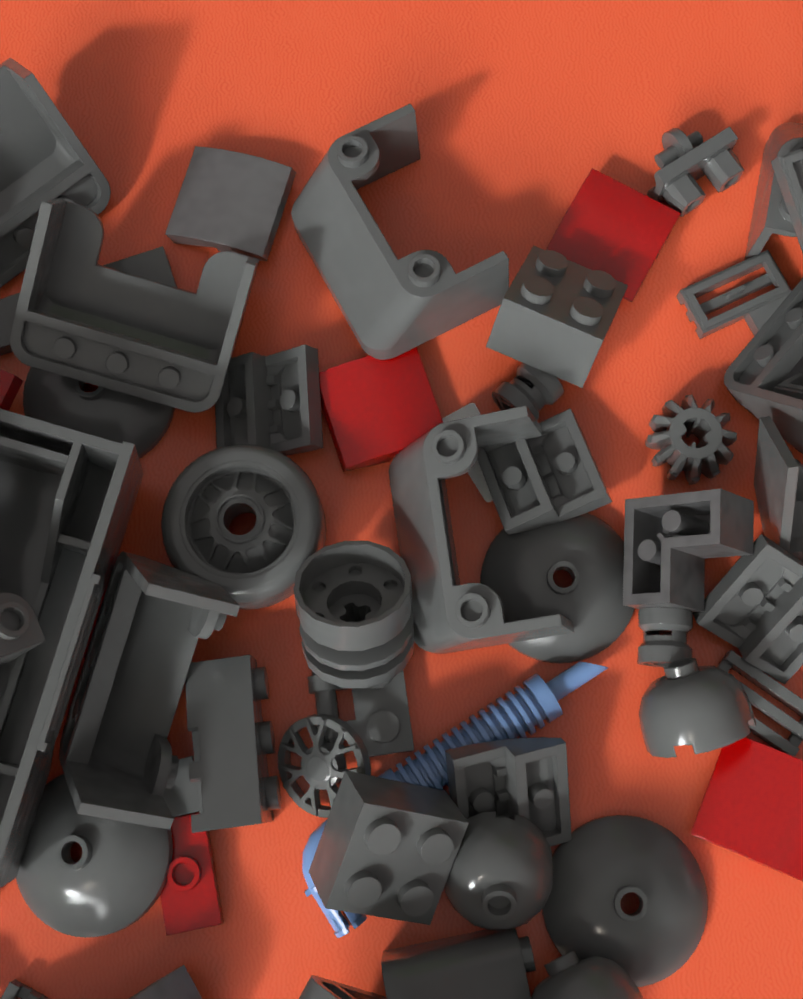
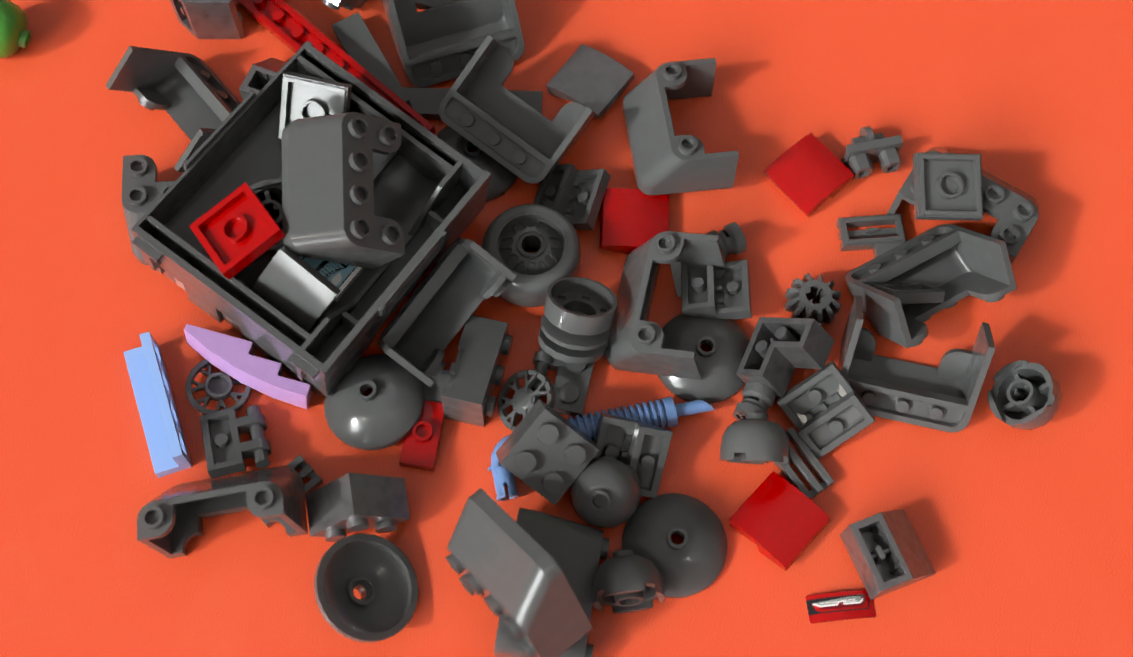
camera: 15 degrees right, 10 degrees down
(556, 315) = (757, 202): dark grey brick -> none

